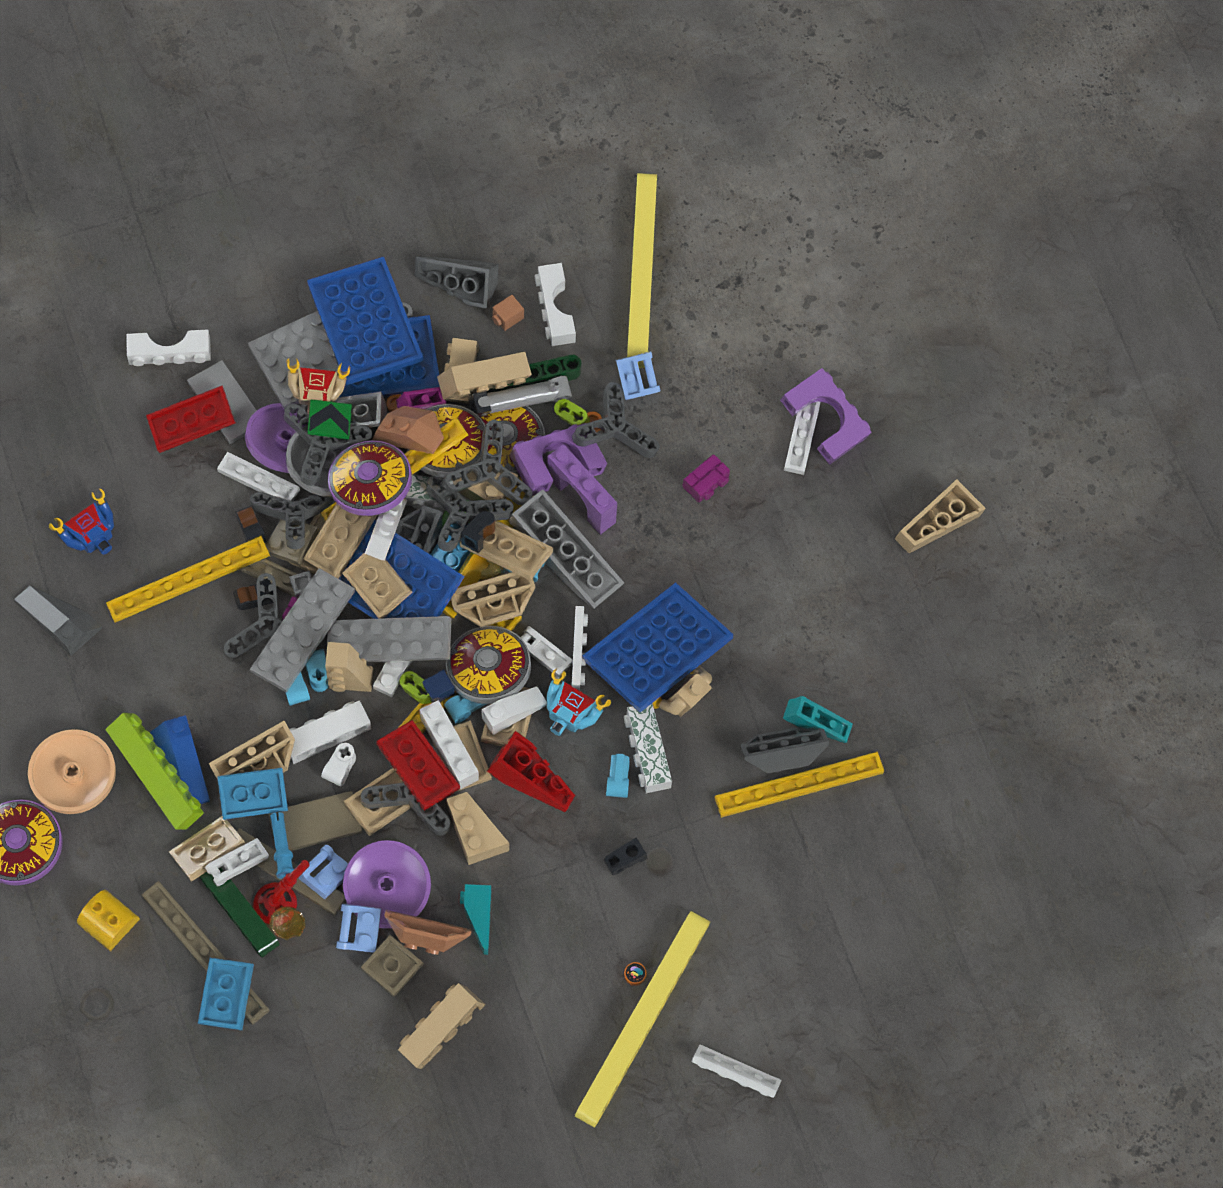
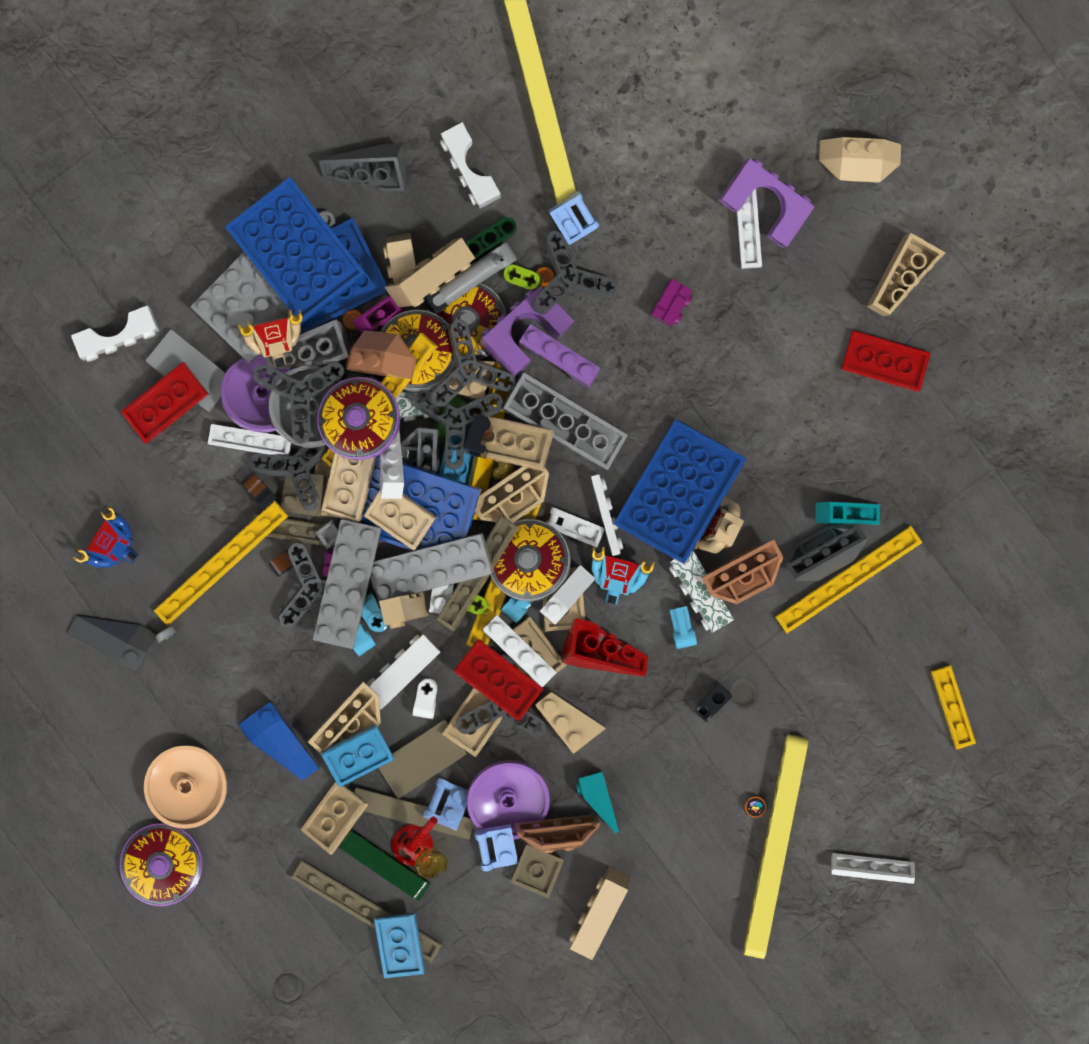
camera: 15 degrees left, 20 degrees up
(106, 919) = (269, 909): yellow brick -> none
(109, 627) = (165, 634): none -> light grey tile
(155, 771) = (260, 761): lime brick -> none
(237, 861) = (367, 824): white plate -> none
(283, 854) = (406, 804): dark azure pin -> none
(329, 419) = (299, 369): green piece -> none
(419, 671) = (467, 590): none -> dark tan tile
(439, 687) = (490, 598): dark blue panel -> none
(507, 313) = (427, 190): nougat brick -> none
(697, 741) = (745, 573): none -> nougat wedge
(868, 939) = (953, 707): none -> yellow tile
(898, 594) = (885, 361): none -> red tile
(929, 406) = (860, 158): none -> tan wedge

